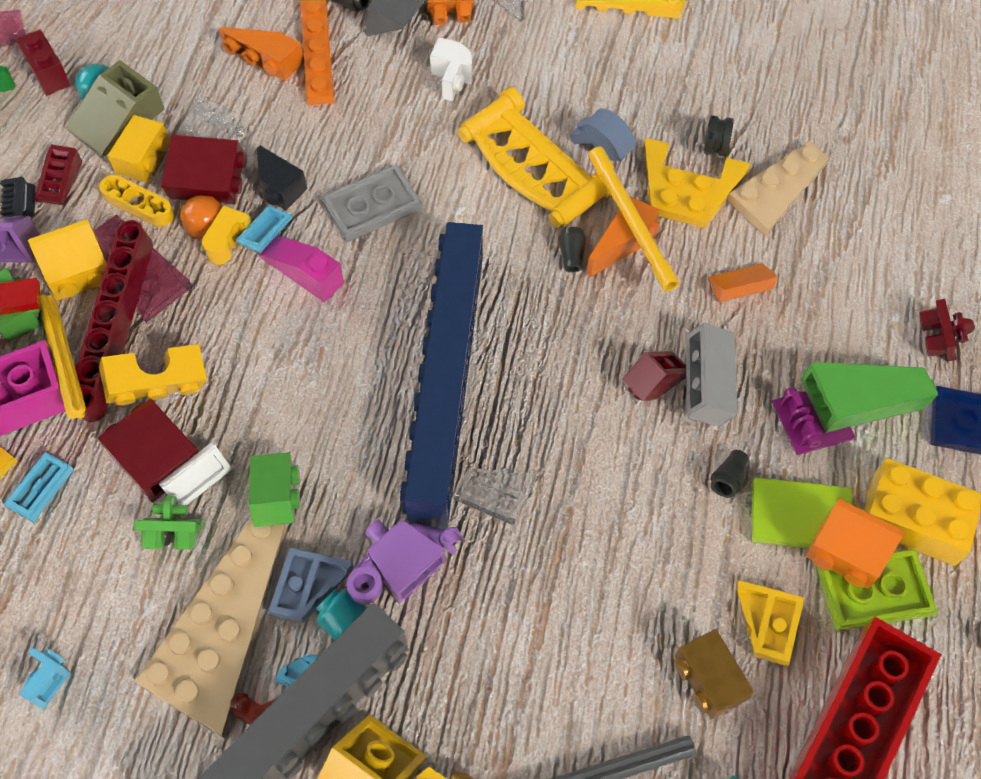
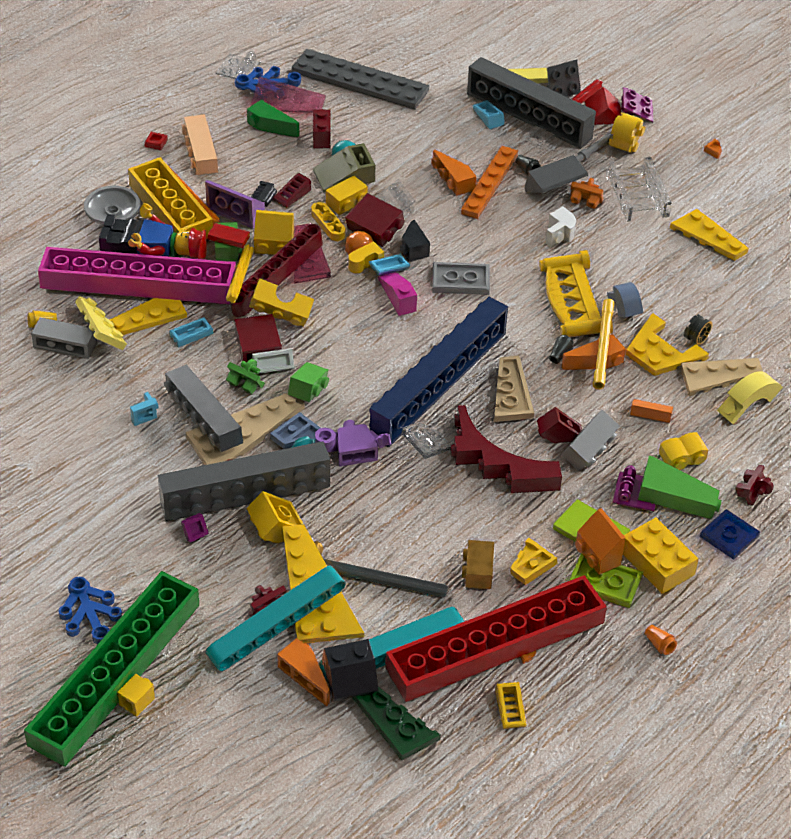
camera: 30 degrees right, 15 degrees down
(142, 629) = (203, 408): none -> brick
(559, 353) = (512, 393): none -> tan wing
(610, 479) = (520, 473): none -> dark red arch
(729, 476) = (563, 491): pearl dark grey cone -> none
(828, 326) = (683, 451): none -> yellow brick
(846, 204) = (746, 392): none -> light yellow arch

